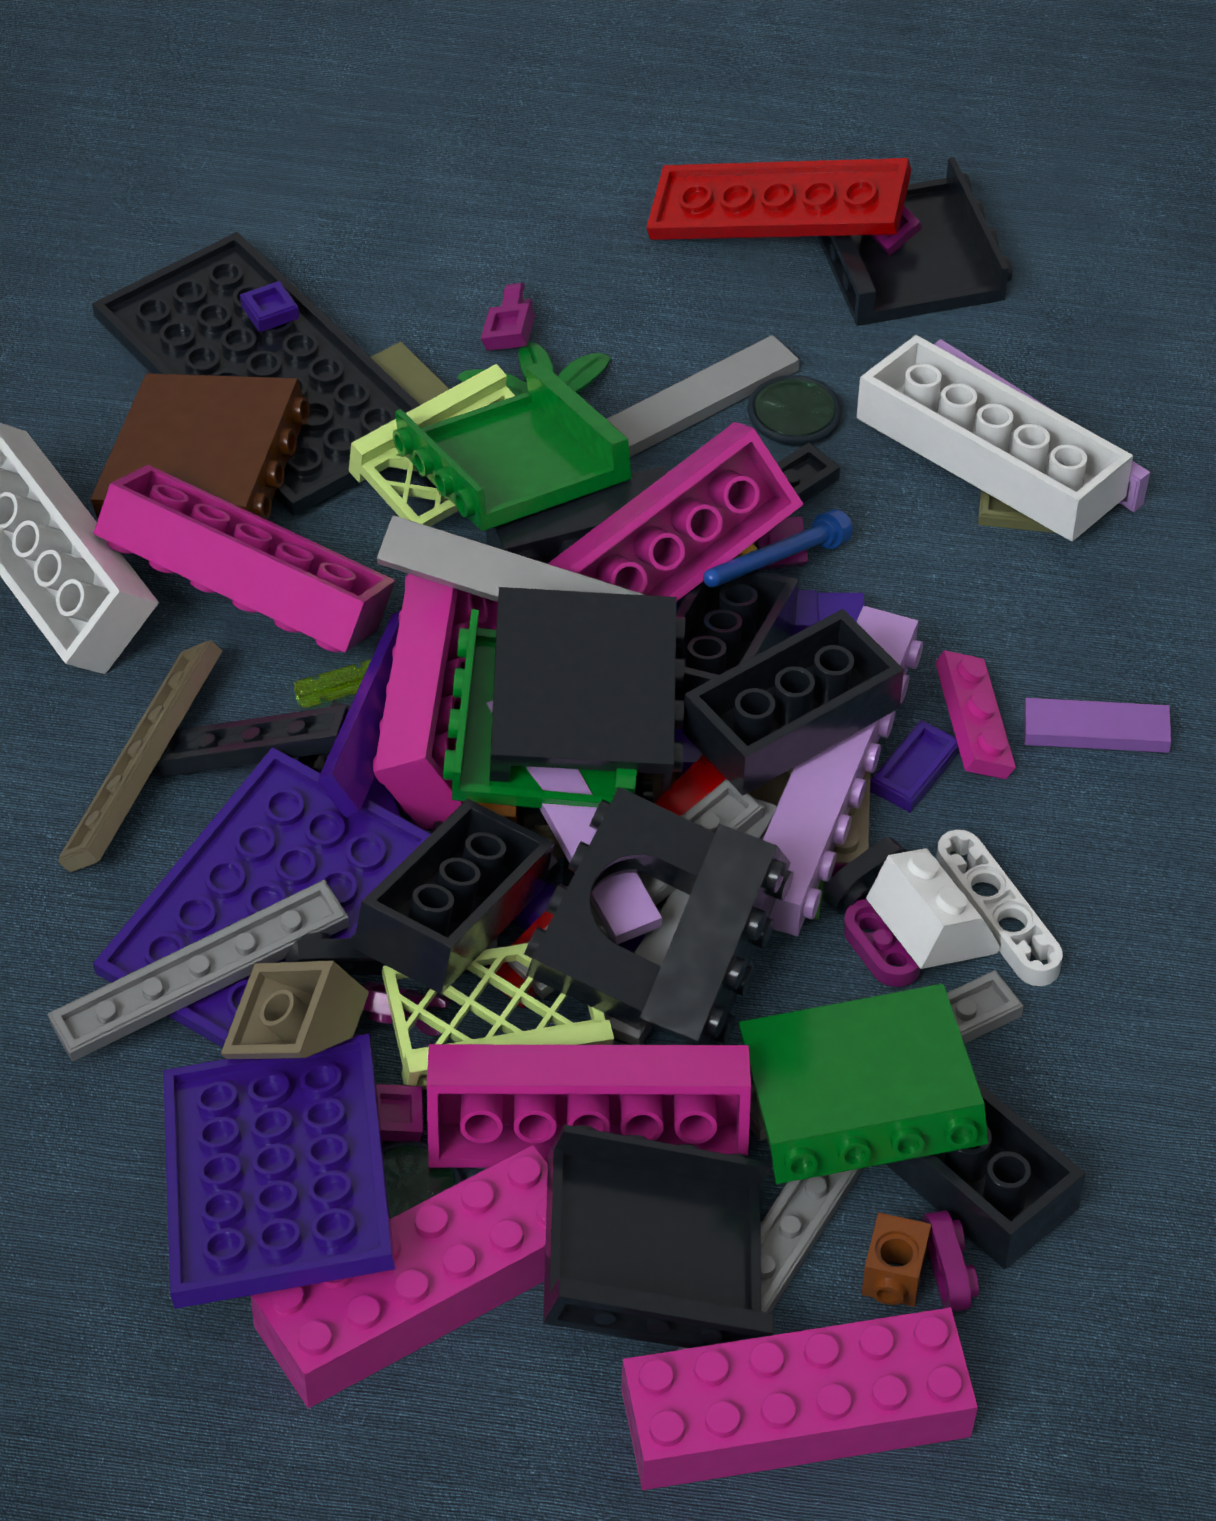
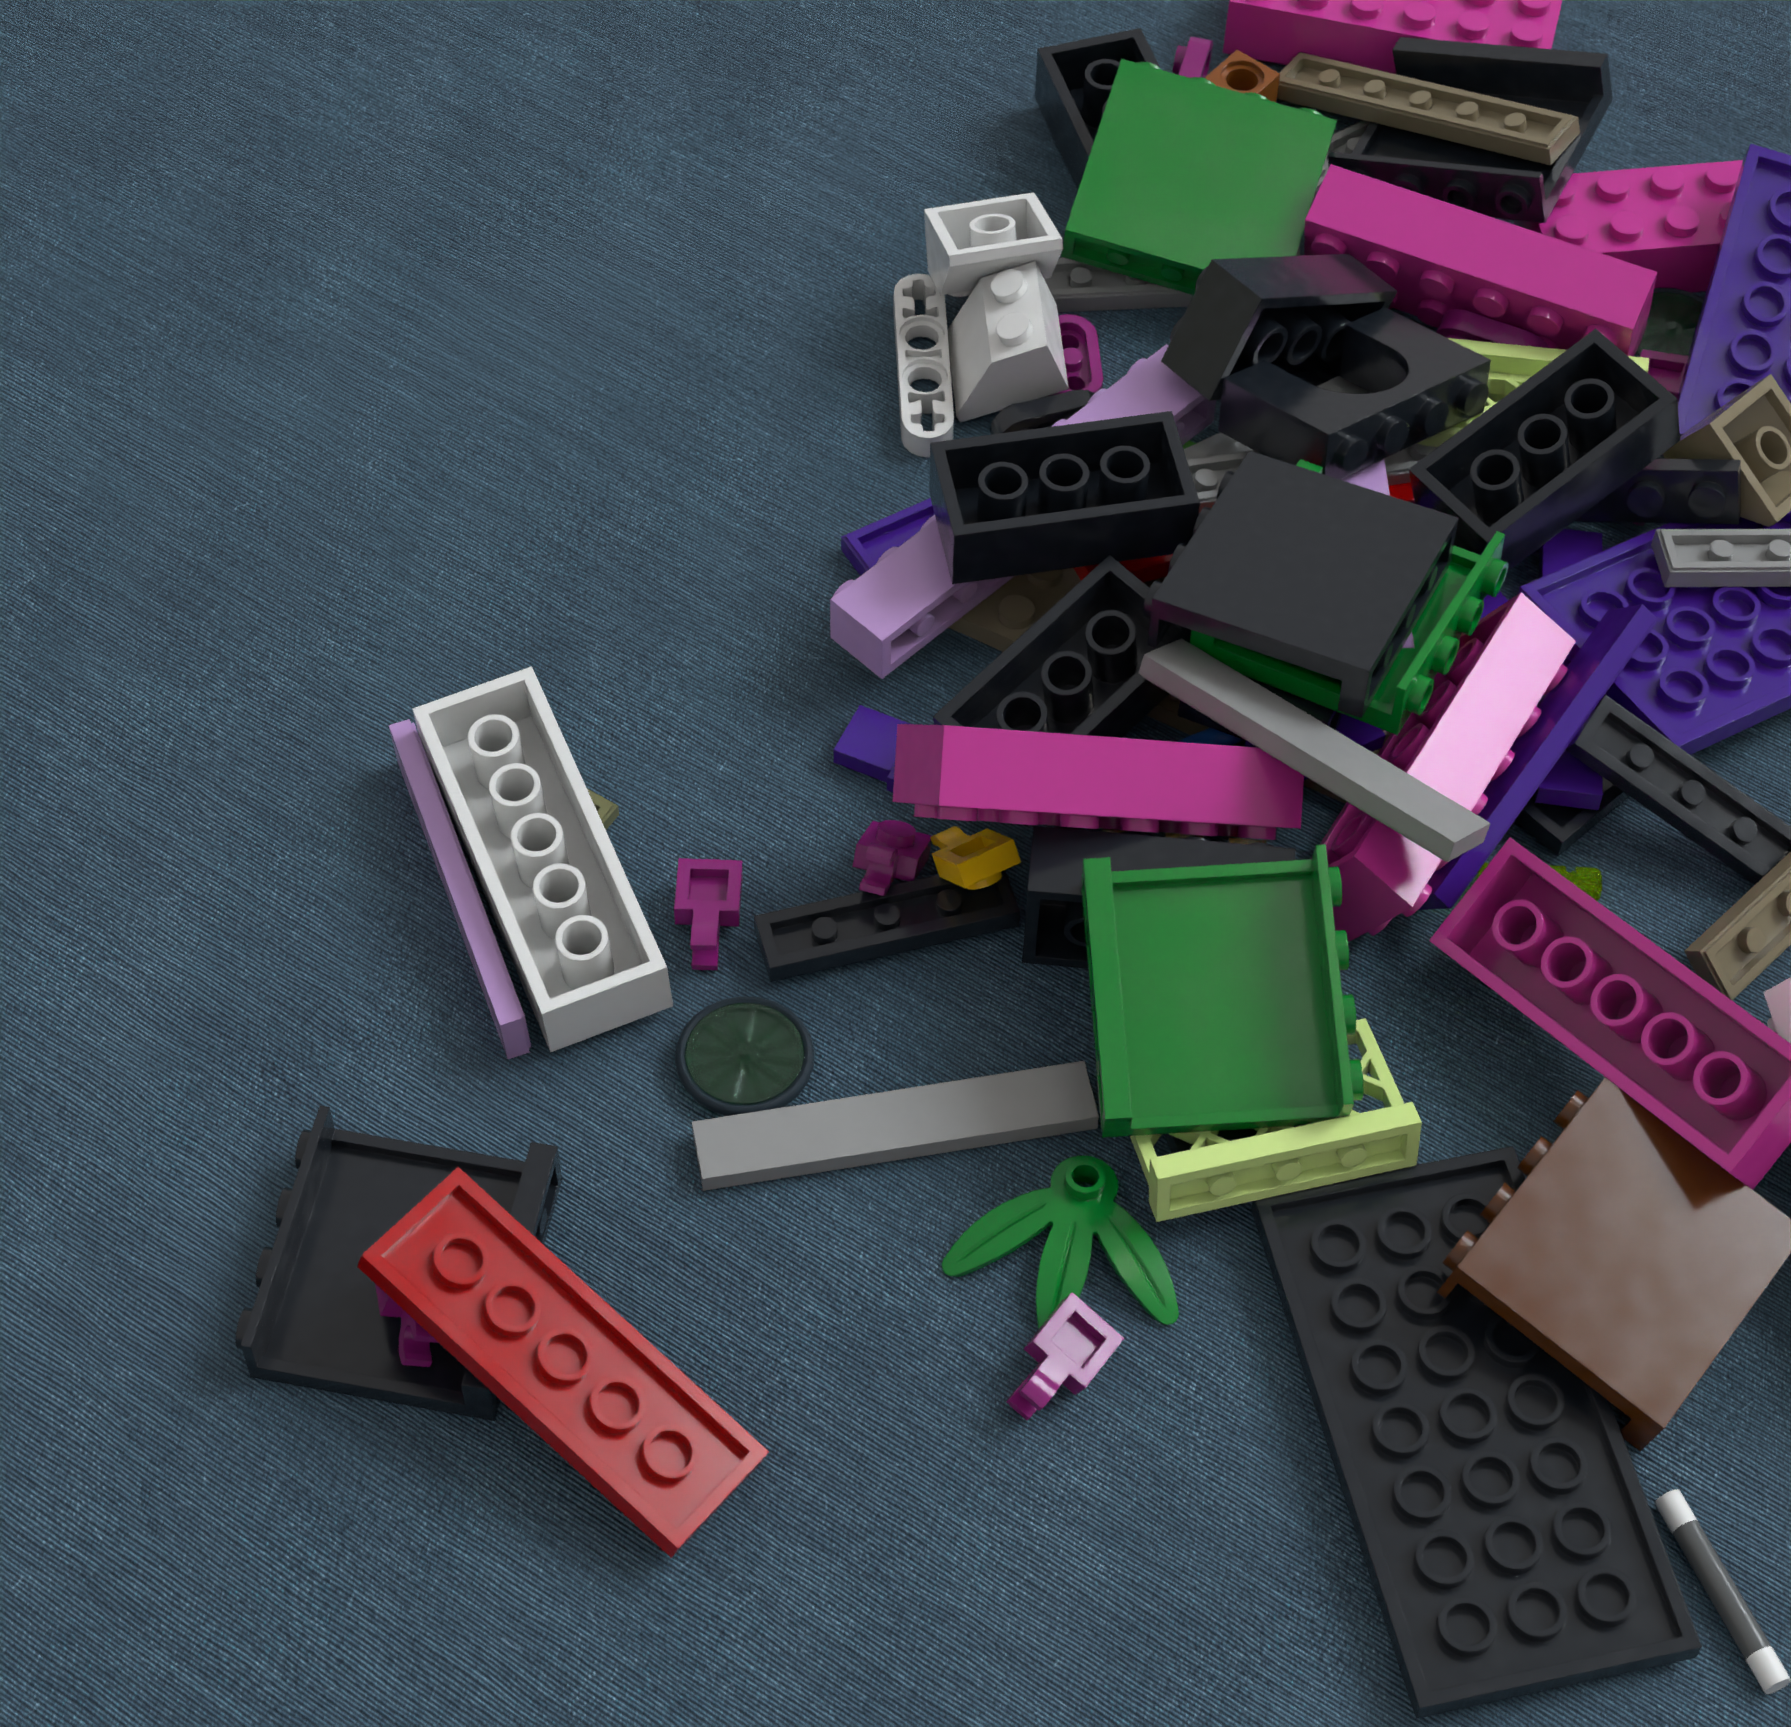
camera: 155 degrees left, 5 degrees up
(88, 349) = (1722, 1592): none -> dark grey bar
(269, 306) = (1427, 1503): dark purple tile -> none
(410, 373) = (1256, 1327): olive tile -> none
(708, 1263) = (1428, 108): none -> dark tan tile
(827, 530) = (827, 838): blue piece -> none
(876, 475) = (707, 898): none -> magenta plate
(975, 715) = (806, 558): dark pink plate -> none
(989, 945) = (988, 238): none -> white slope
(1097, 725) = (675, 507): medium lavender tile -> none

